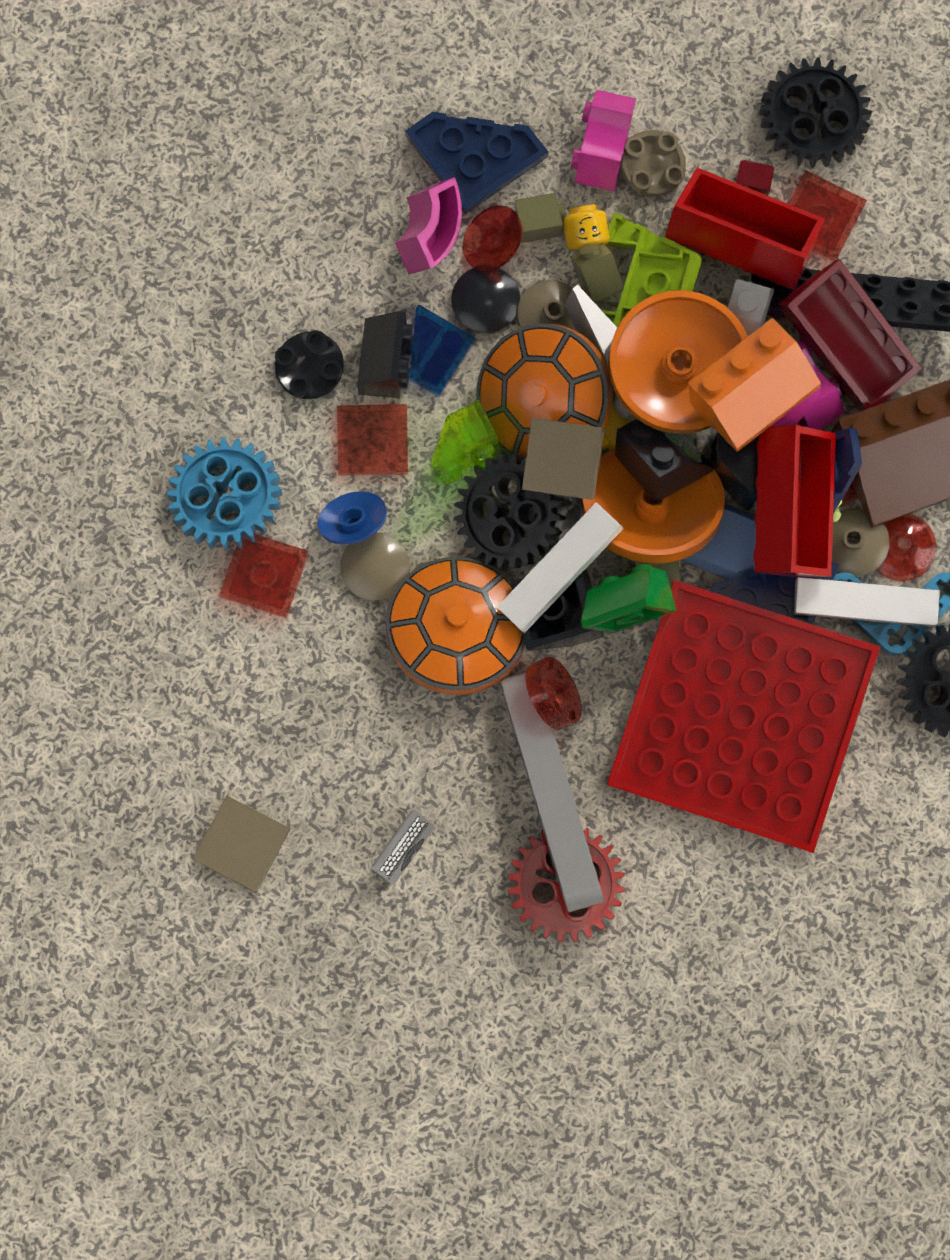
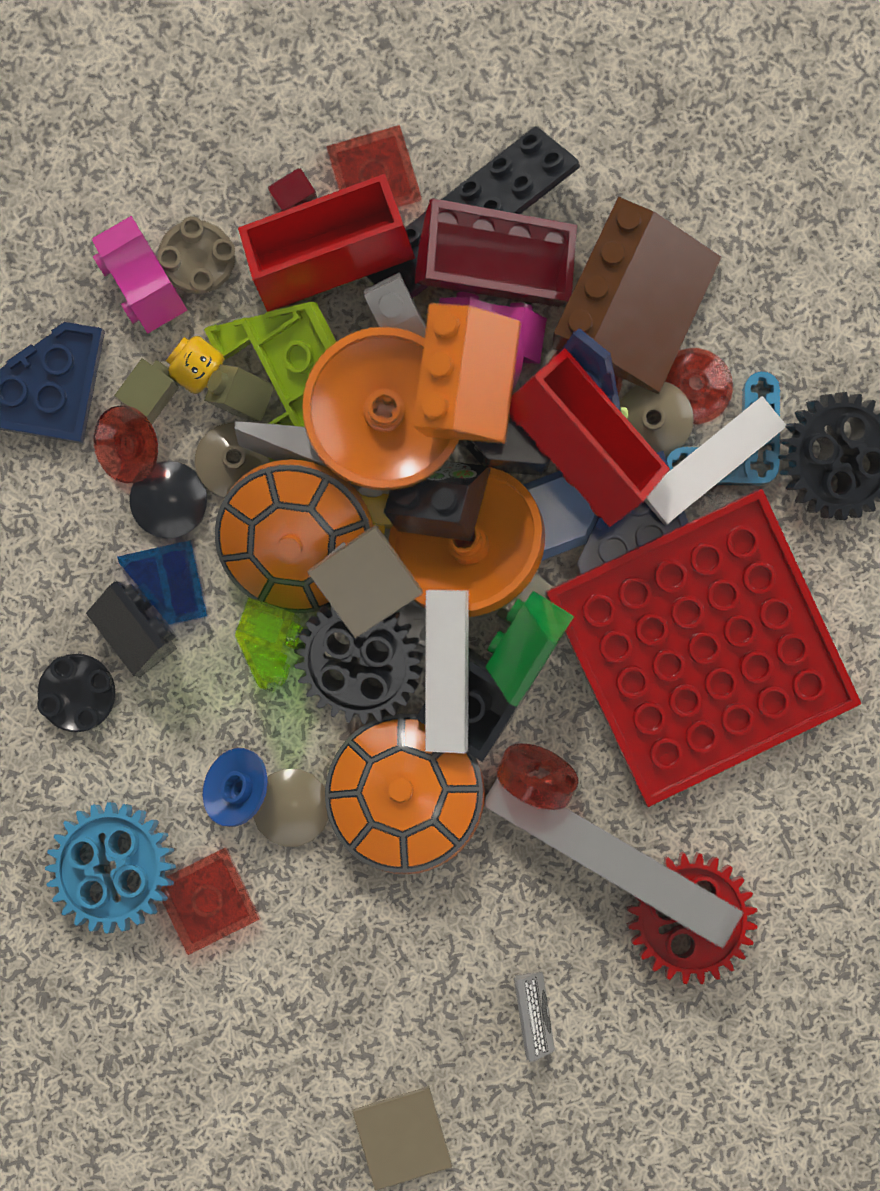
camera: 40 degrees left, 5 degrees up
(372, 439) = (187, 704): clear red tile -> none
(432, 226) = (66, 482): dark pink brick -> none
(785, 117) = (309, 64): black gear -> none

